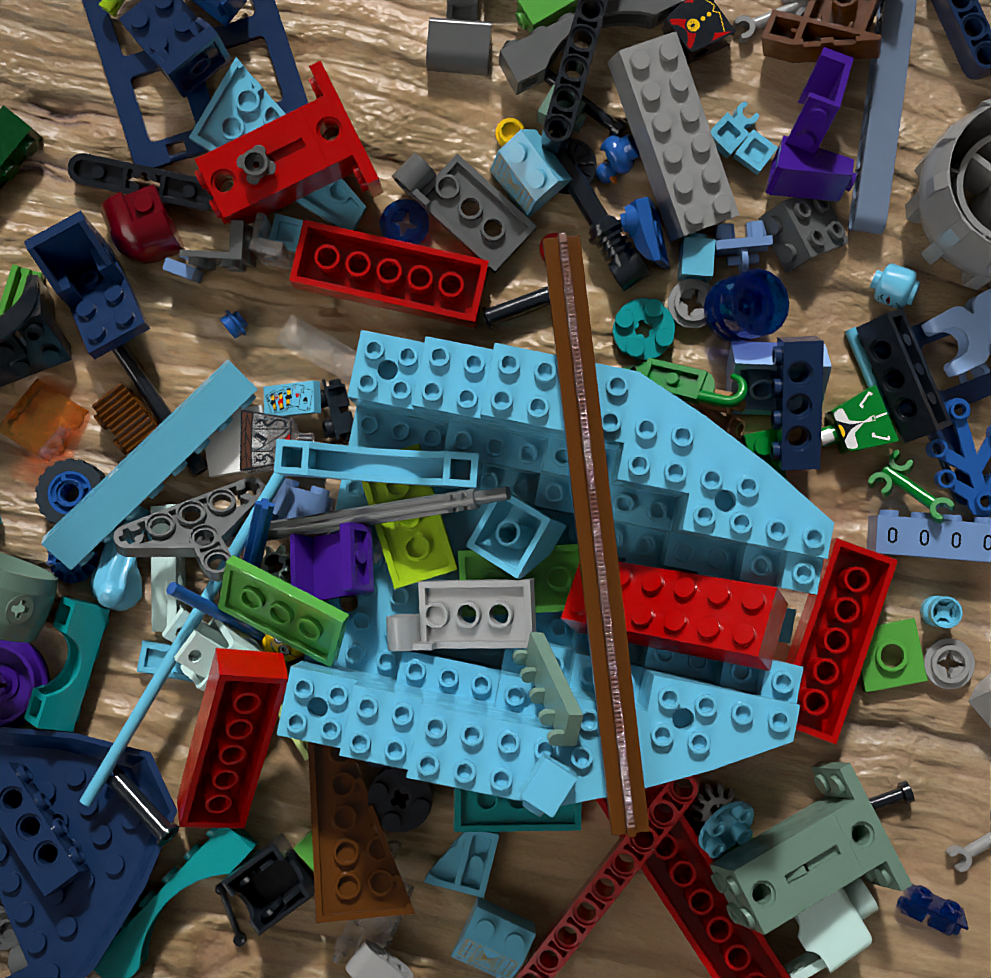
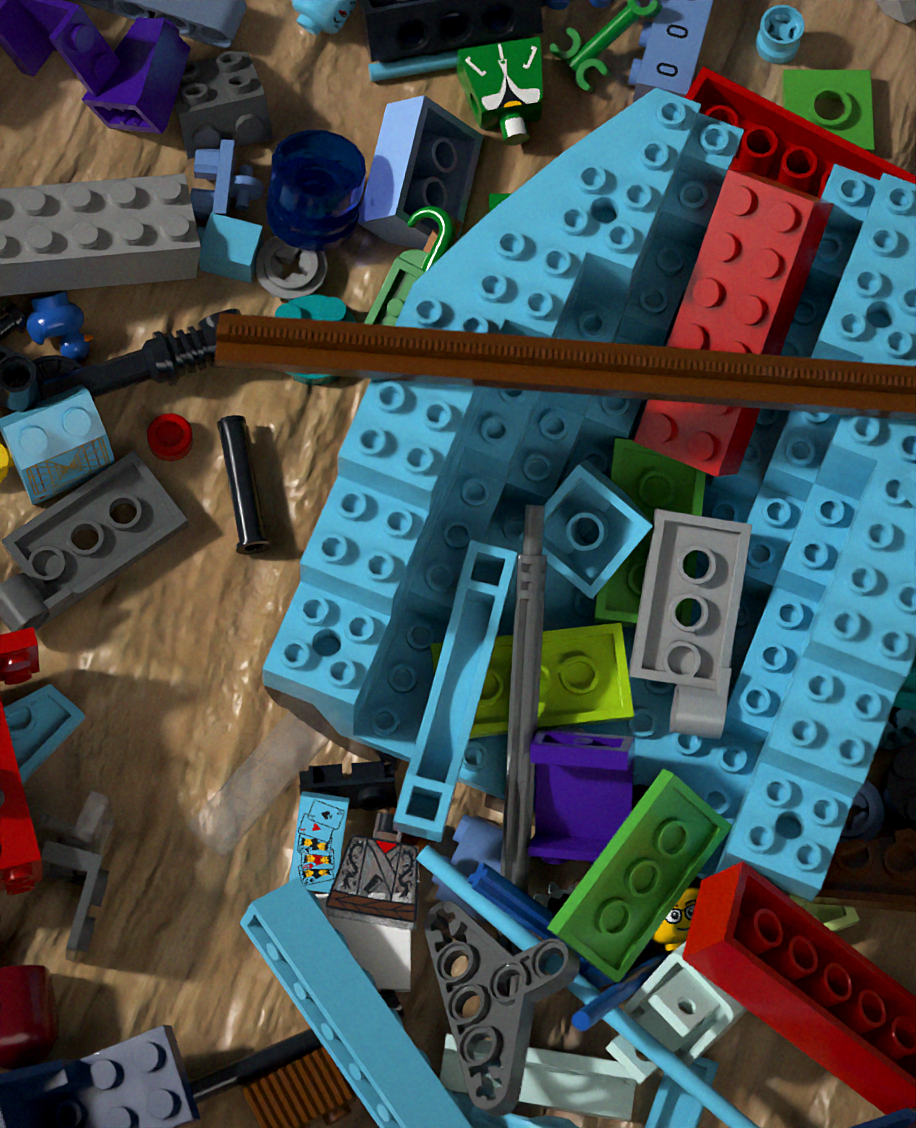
camera: 90 degrees left, 15 degrees down
(183, 270) = (86, 972): medium blue tile -> none
(234, 323) = (183, 913): blue plate -> none
(286, 230) = (61, 801): medium azure plate -> none
(389, 274) = (161, 665): red brick -> none
(397, 212) = (79, 618): clear blue gear -> none
(551, 691) = (813, 484): sand green hinge -> none
(645, 227) = (178, 300): blue slope -> none
(732, 130) = (53, 165): medium azure plate -> none
(755, 152) = (94, 143): medium azure plate -> none
(806, 451) = (447, 125): dark blue brick -> none
(957, 675) = (868, 33): light grey gear -> none

